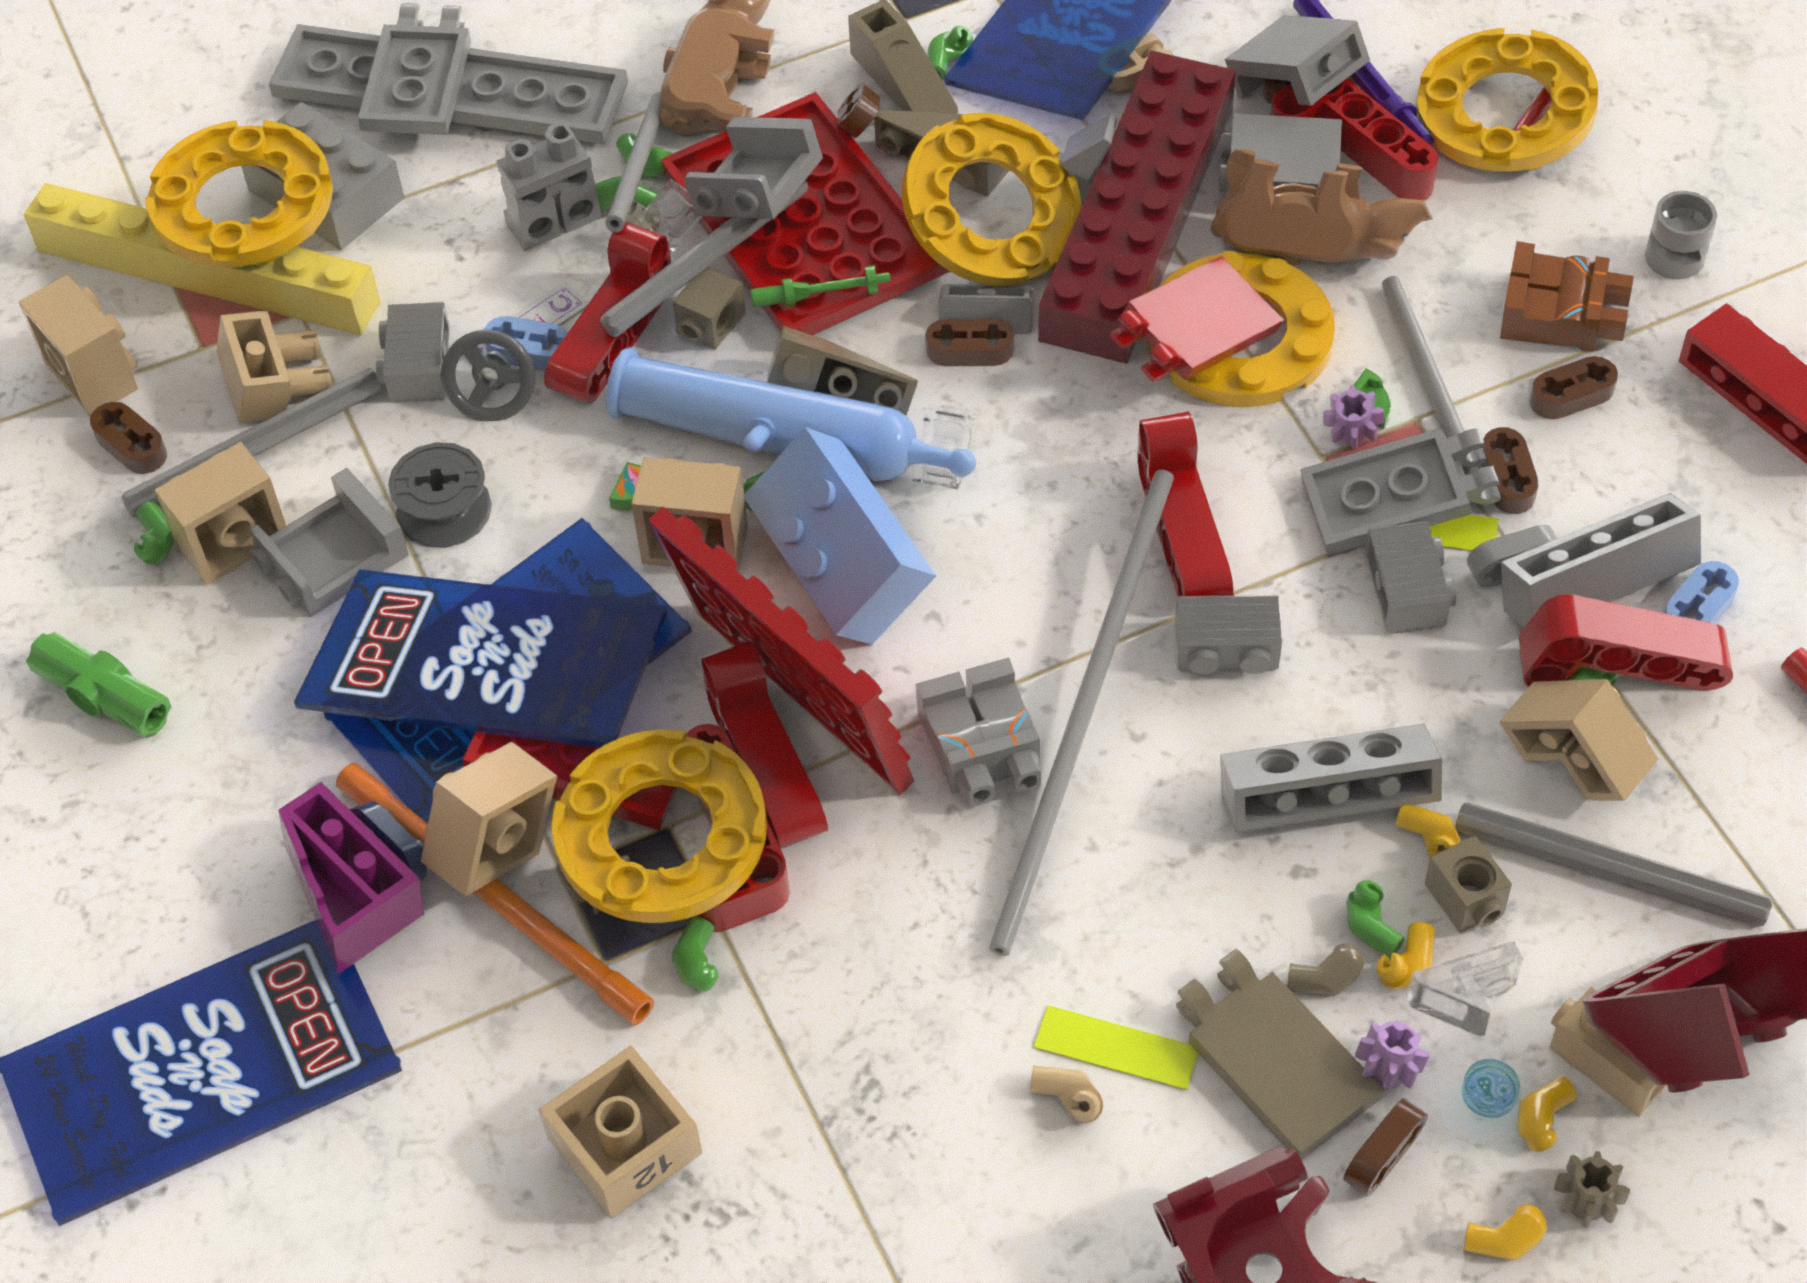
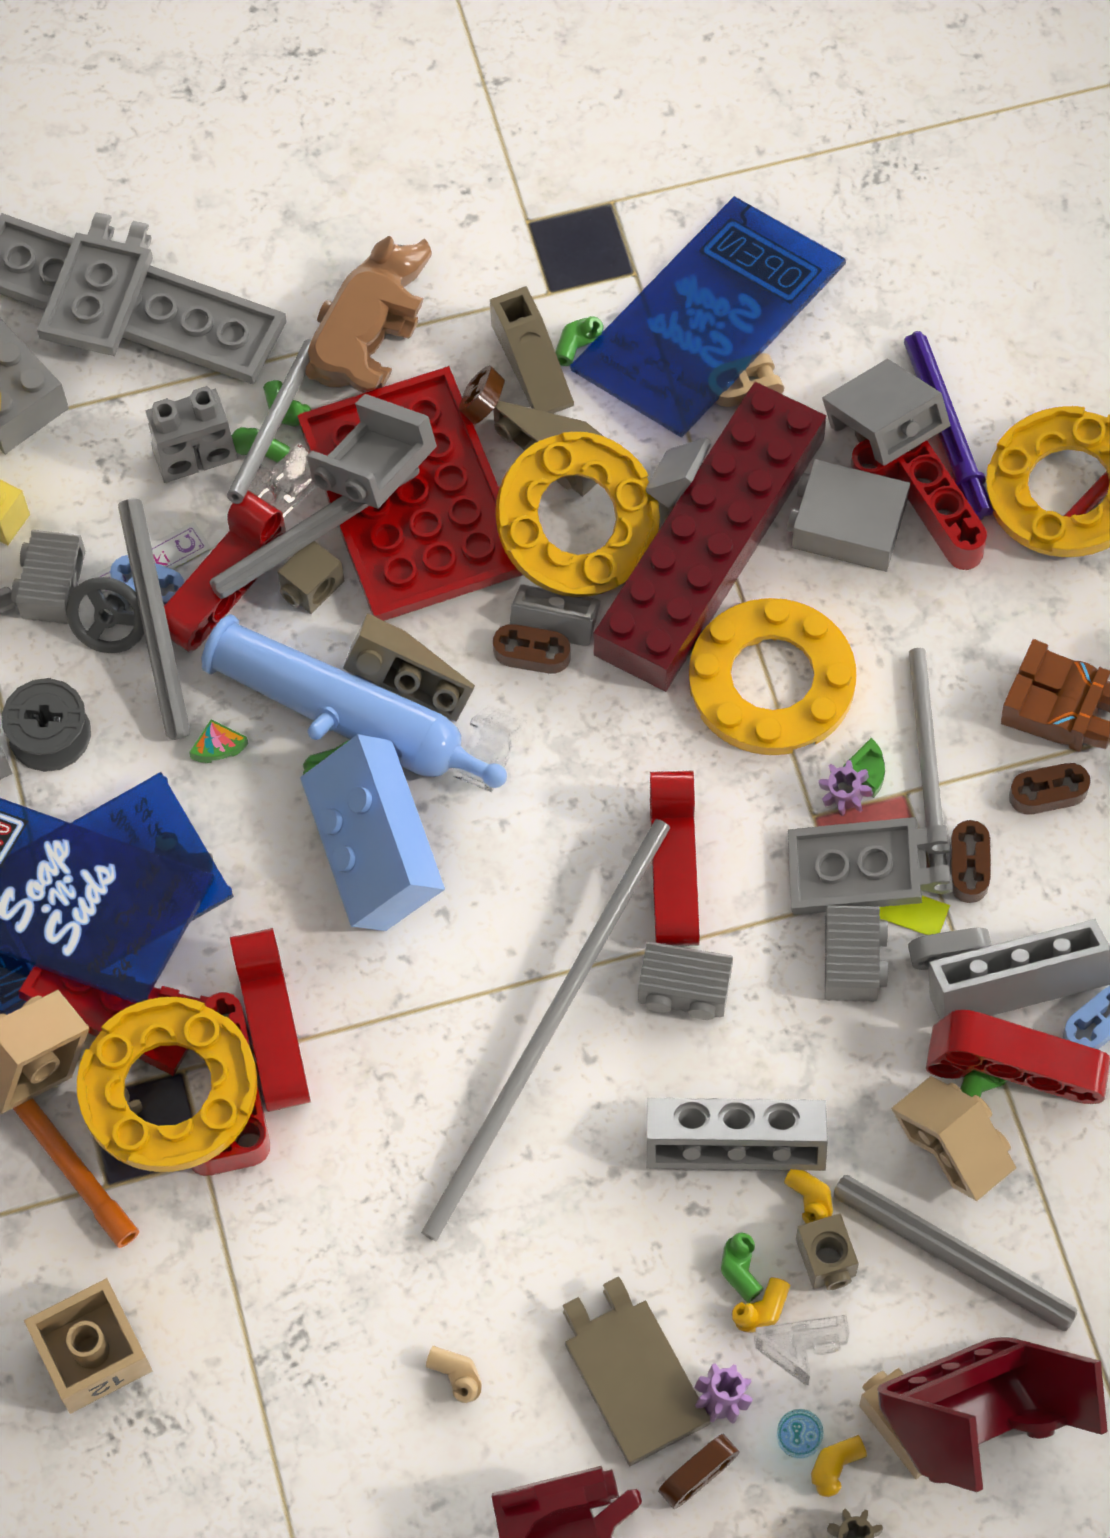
camera: 10 degrees right, 10 degrees up
(544, 368) = (154, 619): none -> light grey axle
(690, 958) = (175, 1199): bright green arm -> none
(701, 491) = (251, 788): tan brick -> none
(791, 292) = (383, 578): bright green piece -> none
(792, 659) = (298, 945): red plate -> none
(980, 734) = (459, 1051): light grey hips -> none
(1116, 1047) = (506, 1339): neon yellow sticker -> none
(1196, 320) = (729, 671): tile -> none
(1310, 221) = (857, 583): medium nougat animal -> none
(1331, 975) = (695, 1310): dark tan arm -> none

